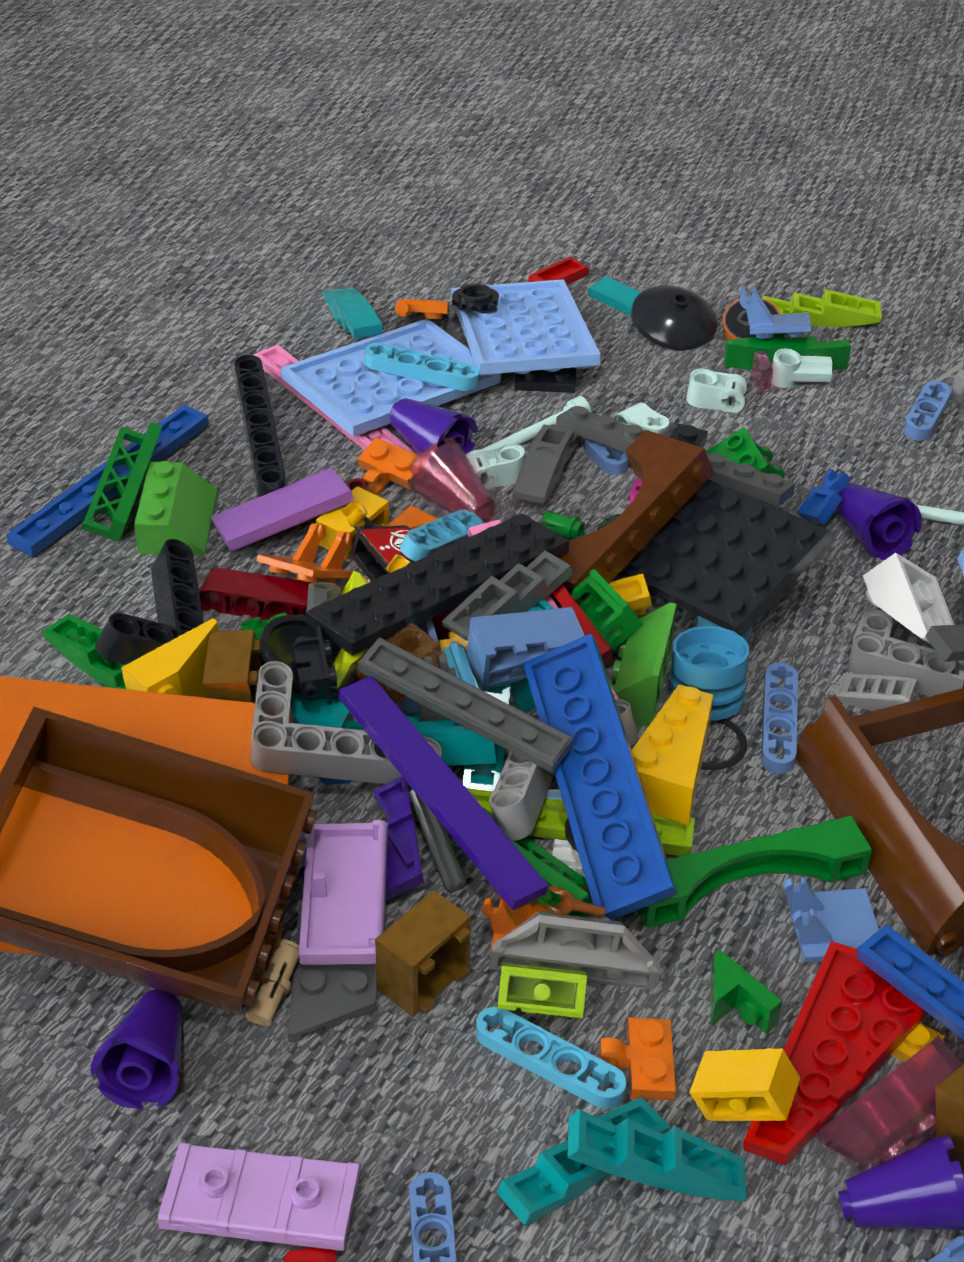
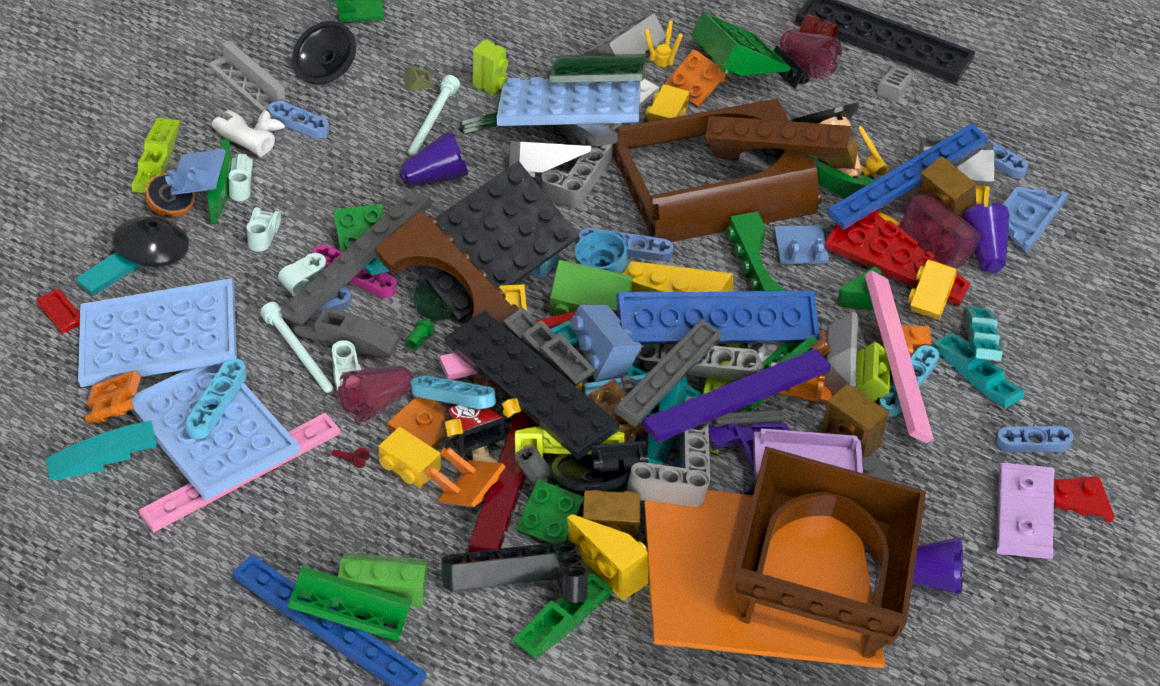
camera: 90 degrees left, 5 degrees up
(259, 425) = (273, 518): black beam -> none
(281, 509) = (397, 498): medium lavender tile -> none
(385, 464) = (338, 430): orange plate -> none
(428, 424) = (312, 394): dark purple cone -> none
(475, 298) = (110, 352): black gear -> none
(577, 1020) = (898, 357): none -> bright pink tile
(606, 610) = (549, 302): green hinge -> none
(690, 435) = (332, 247): black plate -> none
(762, 371) = (241, 198): clear pink tile -> none
(823, 501) = (413, 183): blue plate -> none
(879, 370) = (256, 140): none -> white piece
(891, 689) = (608, 181): light grey slope -> none

